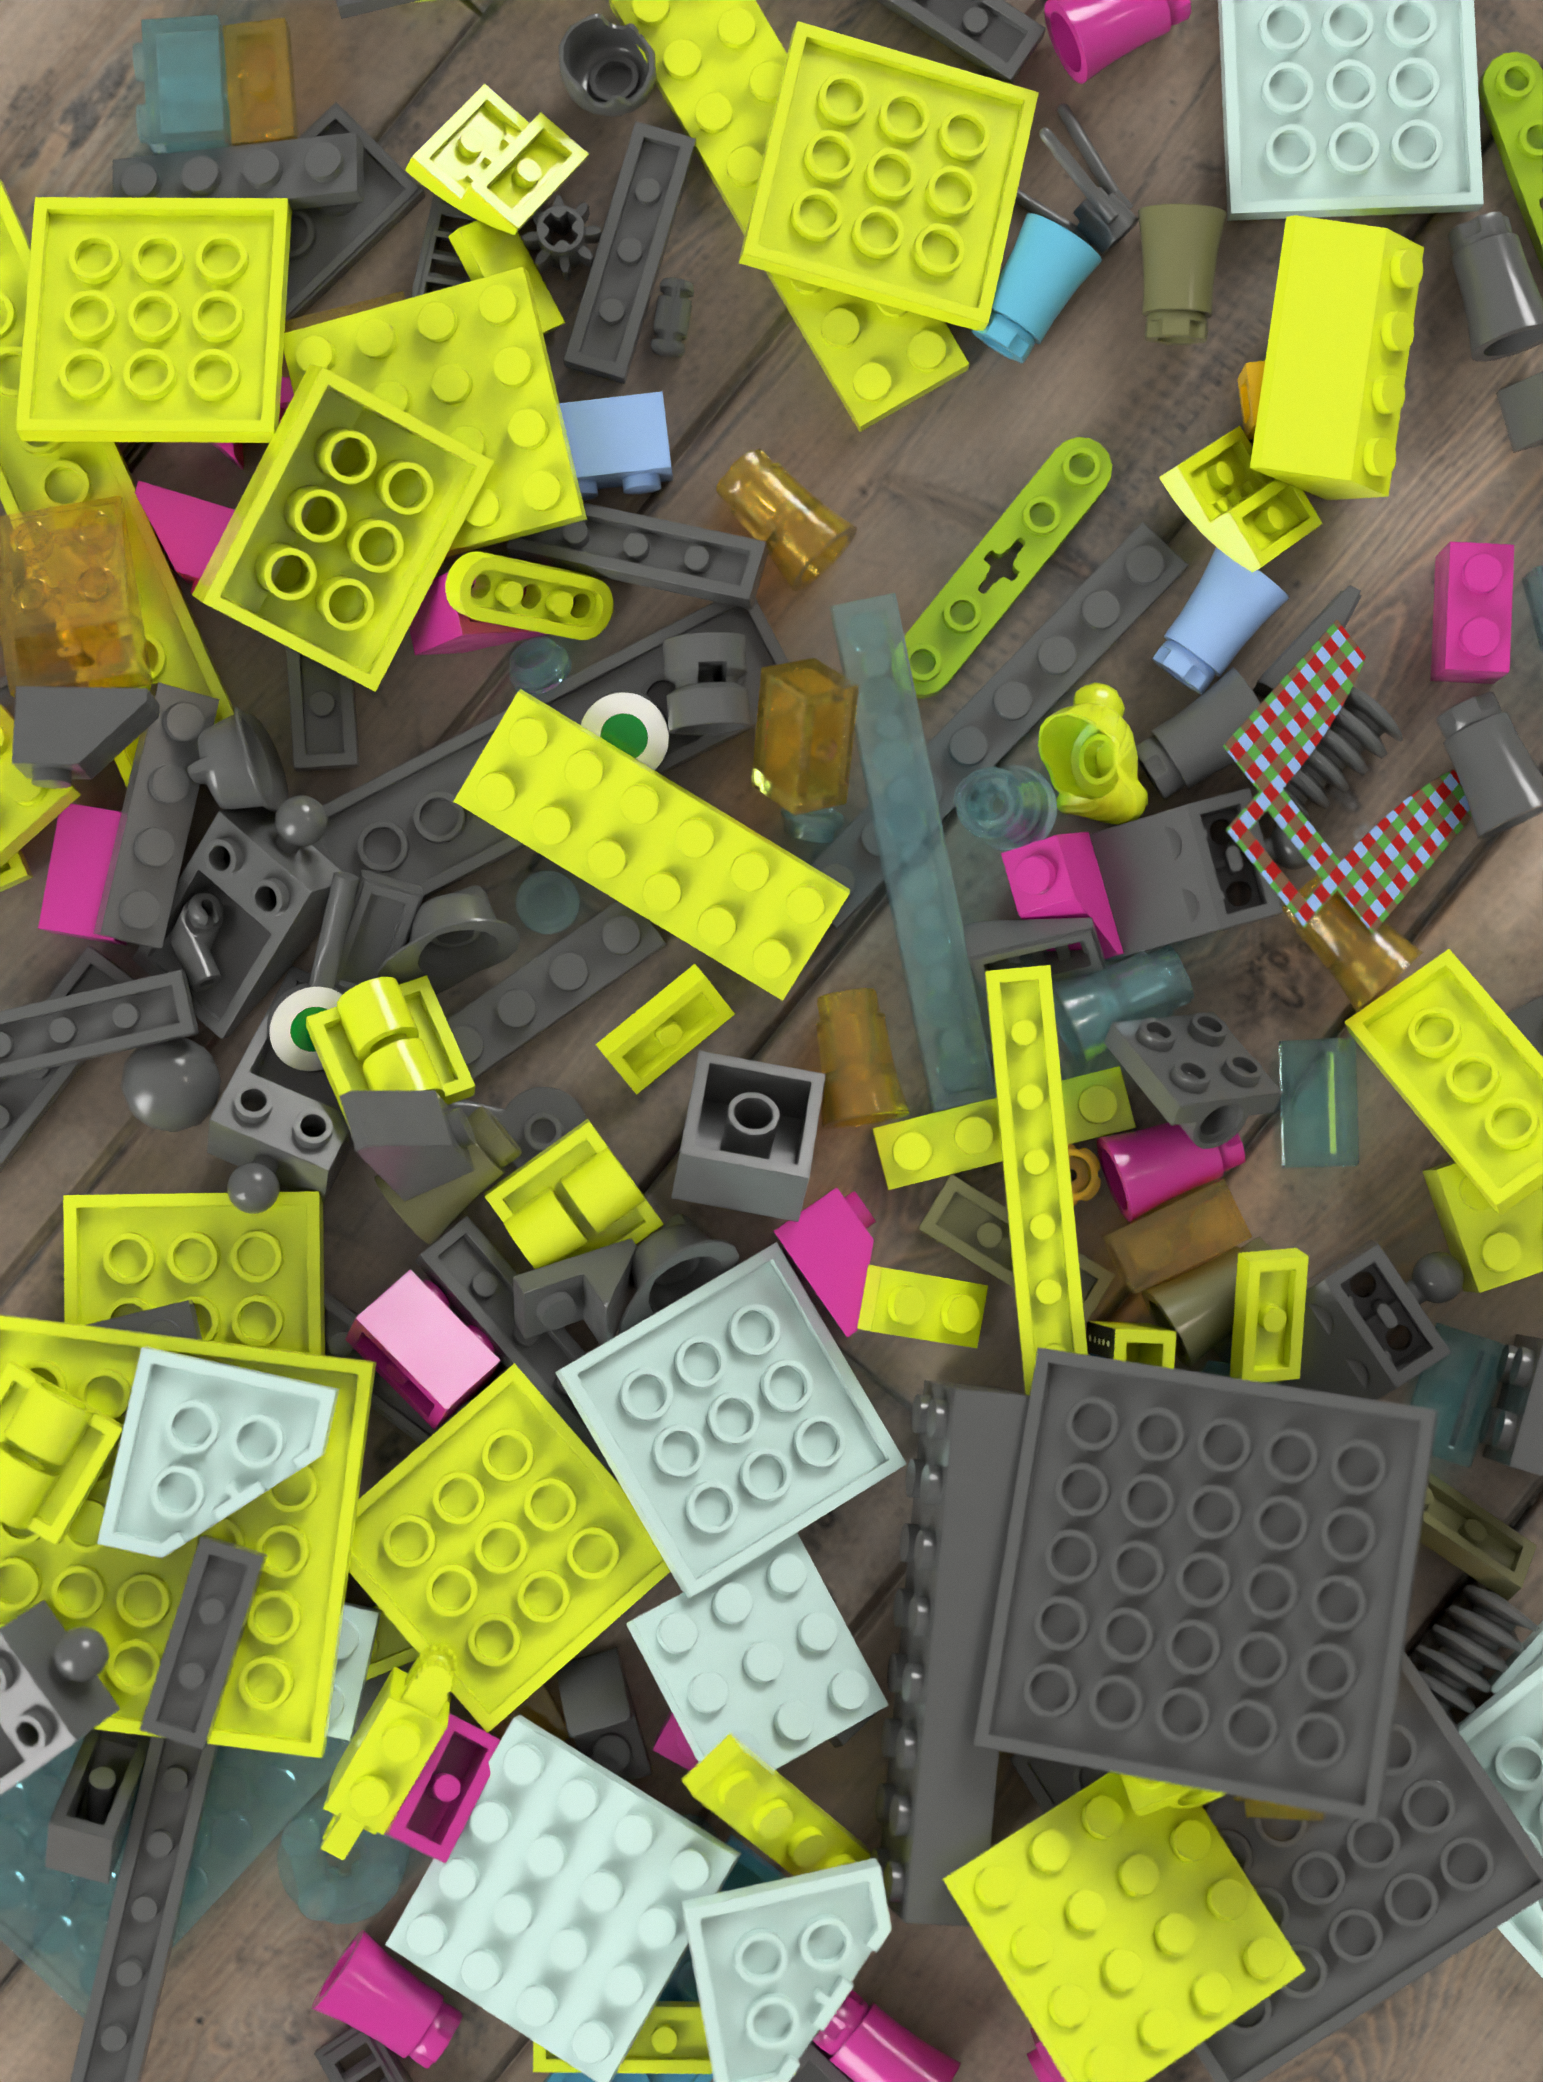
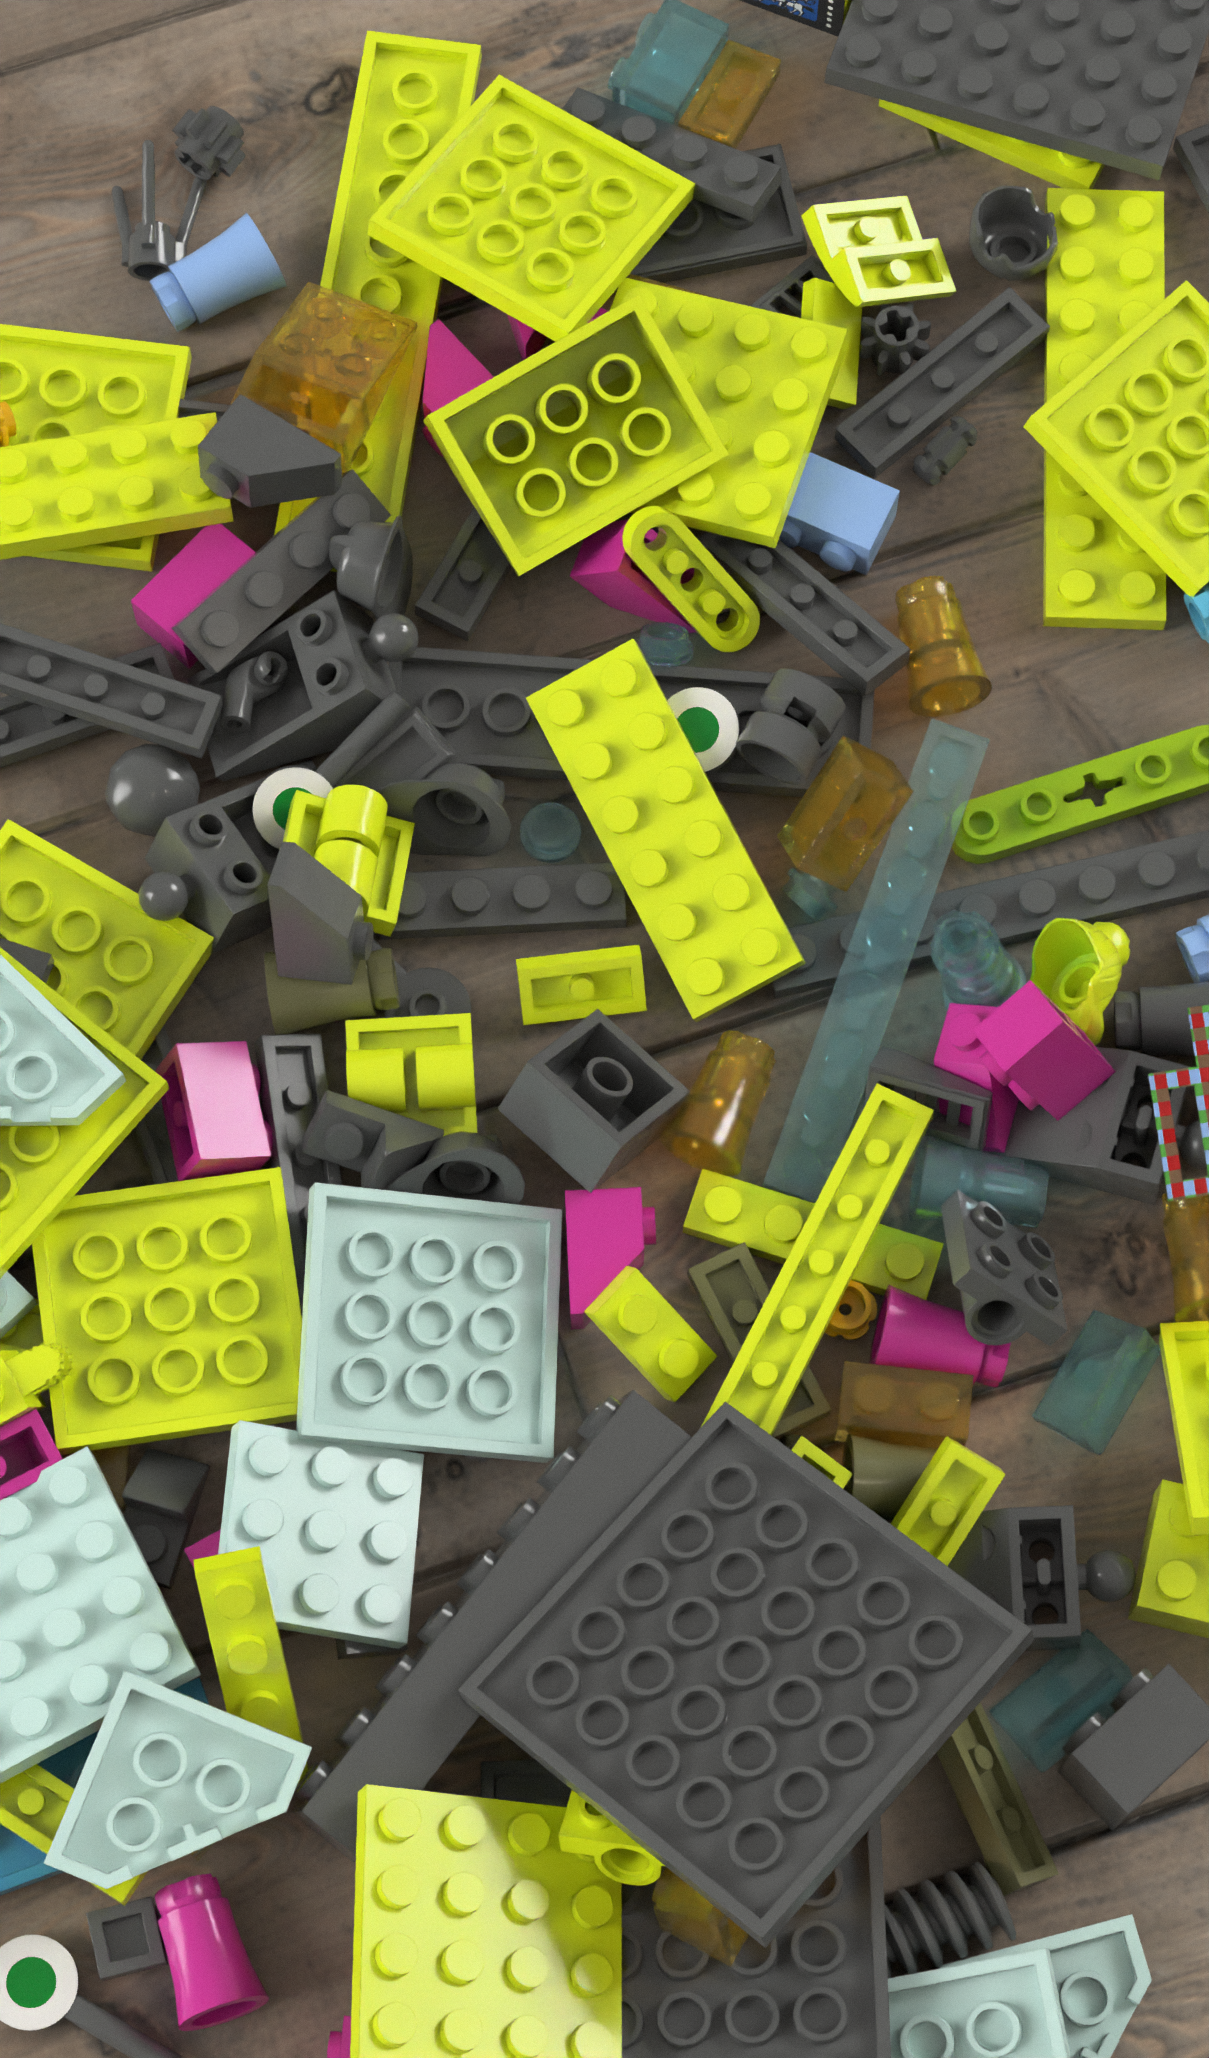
camera: 30 degrees right, 15 degrees down
(1115, 858) = (1041, 1052): none -> dark pink brick

